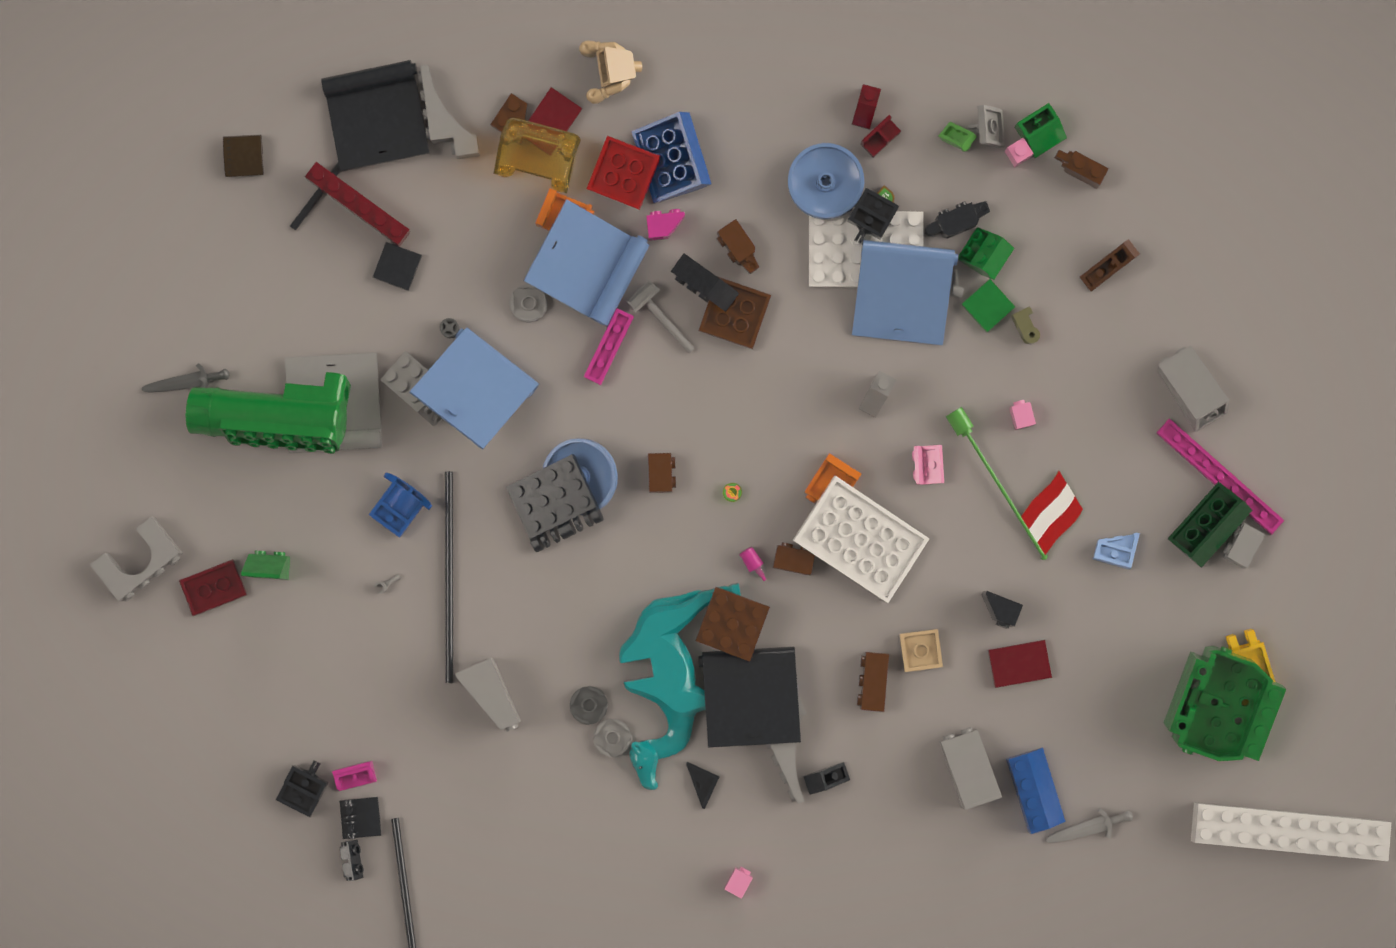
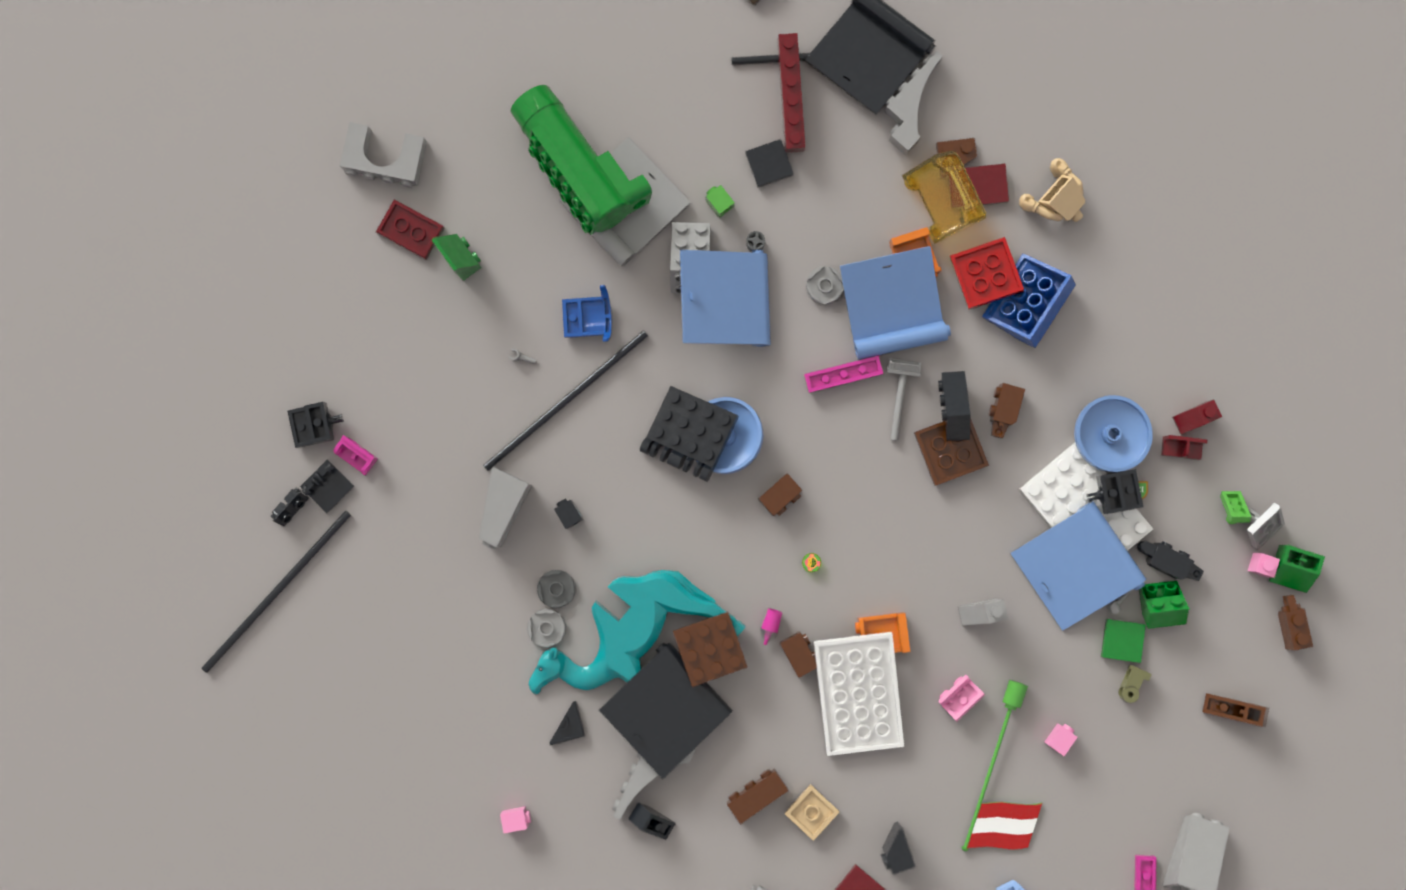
camera: 60 degrees right, 0 degrees up
(190, 380) = (557, 85): dark grey sword -> none
(394, 329) = (719, 200): none -> bright green brick
(538, 647) = (568, 513): none -> black brick
(663, 225) = (971, 337): dark pink slope -> none

